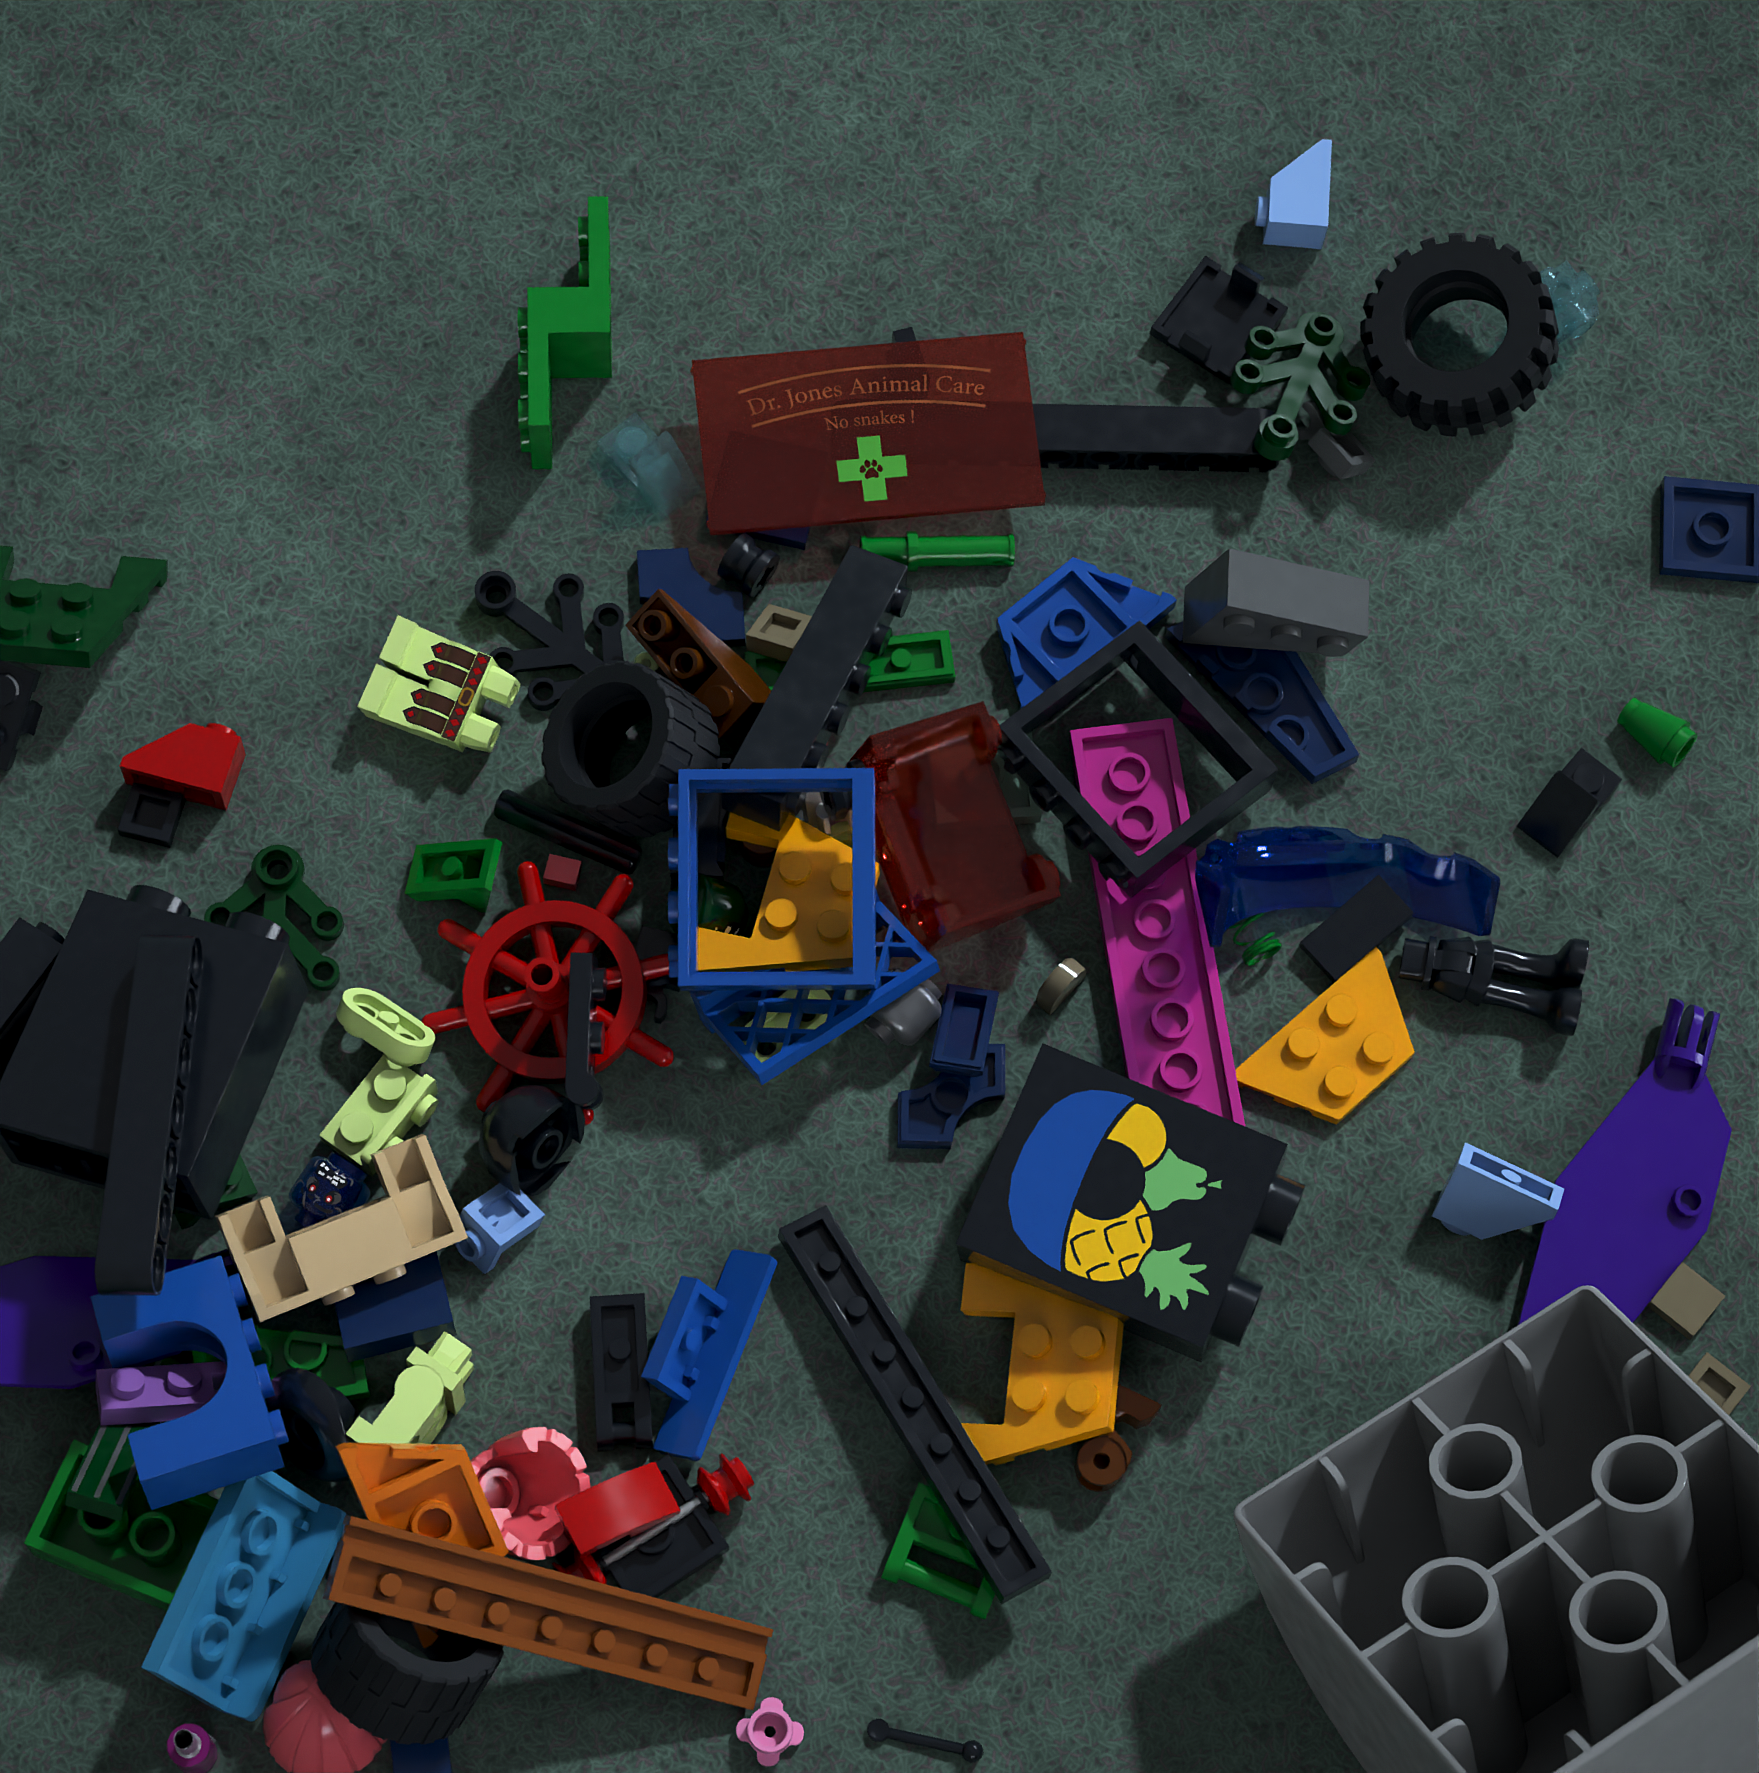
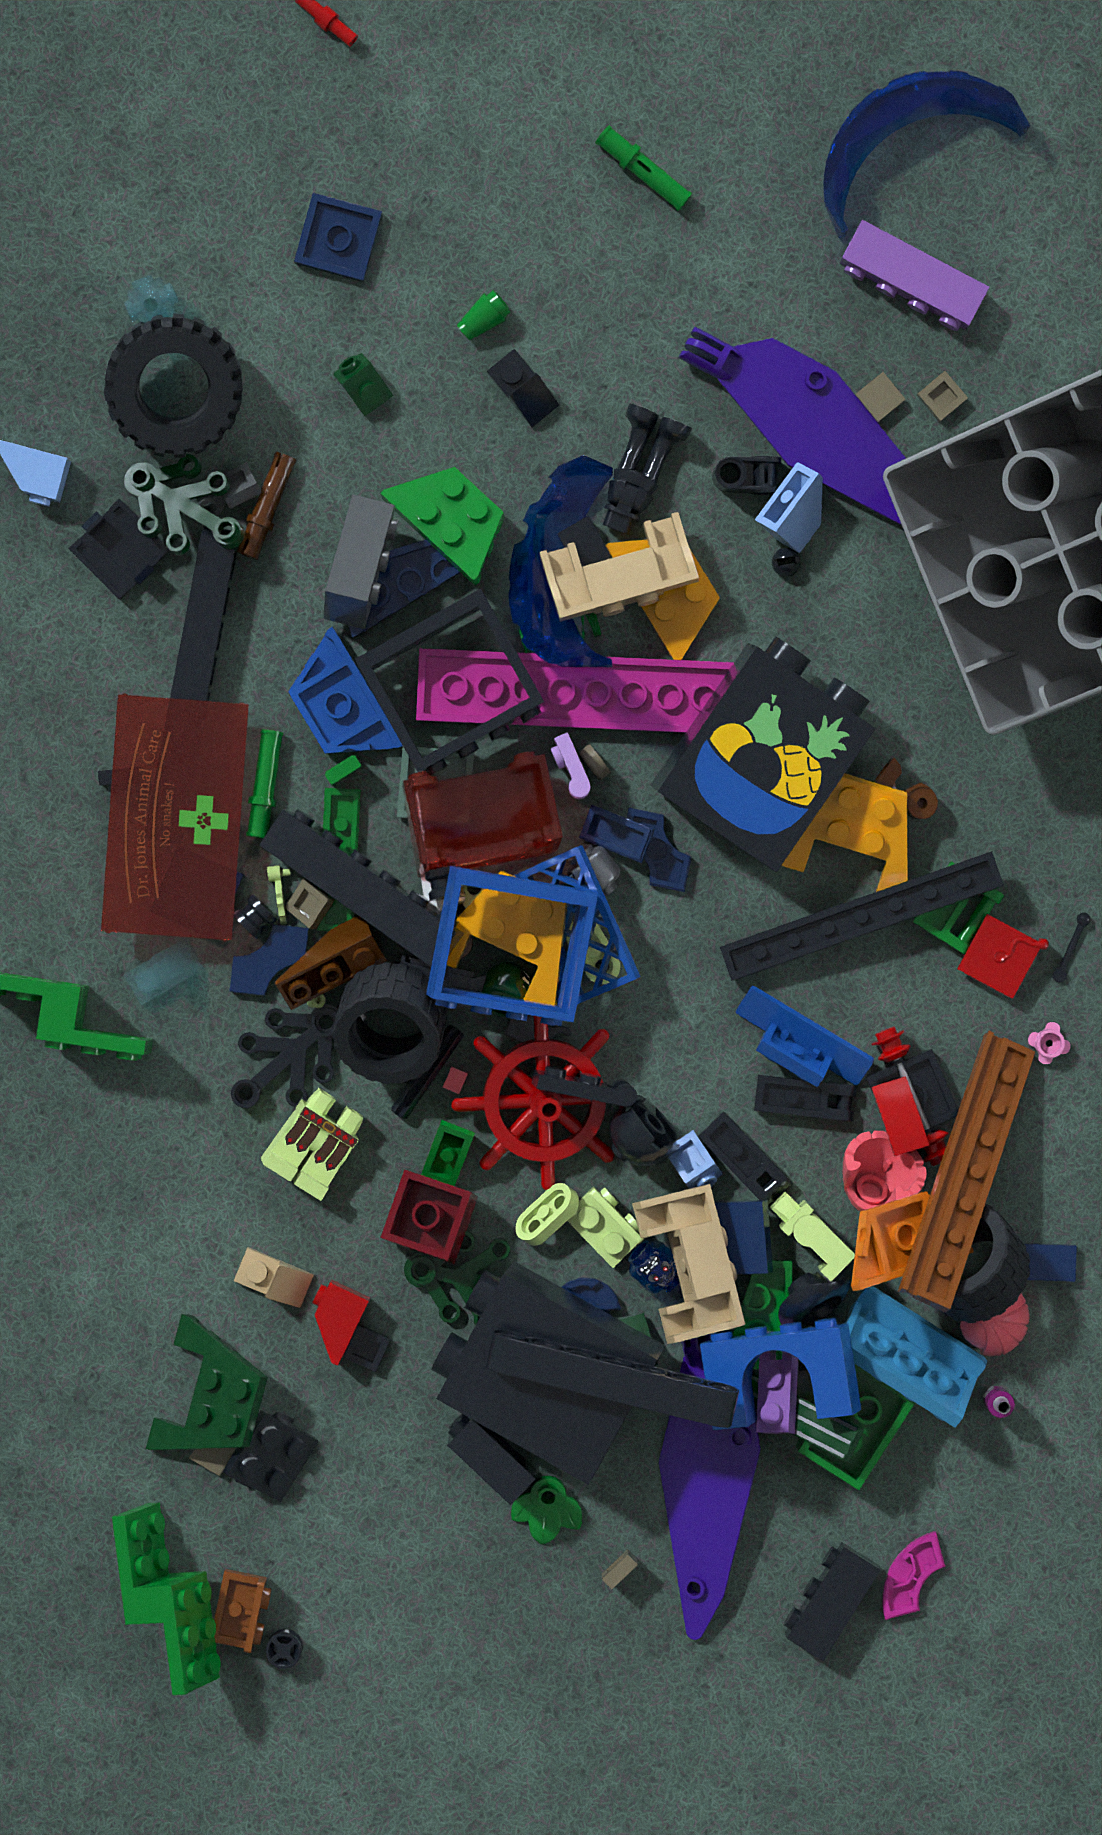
camera: 70 degrees left, 20 degrees up
(235, 674) = (273, 1277): none -> tan slope
(276, 1117) = (593, 1292): none -> dark blue tile
(356, 856) = (429, 1216): none -> dark red brick
(516, 1295) = (743, 1157): none -> black plate
(812, 587) = (275, 875): none -> yellowish green piece
(891, 1626) = (1000, 956): none -> red hat
(978, 647) = (343, 770): none -> green tile
(1039, 951) = (566, 756): none -> lavender plate
(1331, 495) = (264, 511): none -> reddish brown pin
(1337, 965) = (622, 579): none -> tan bracket
(1365, 729) = (450, 517): none -> green wing
(1404, 1209) = (788, 569): none -> black hinge
(1520, 590) = (362, 383): none -> dark green bracket
(1530, 1136) = (750, 474): none -> black piece

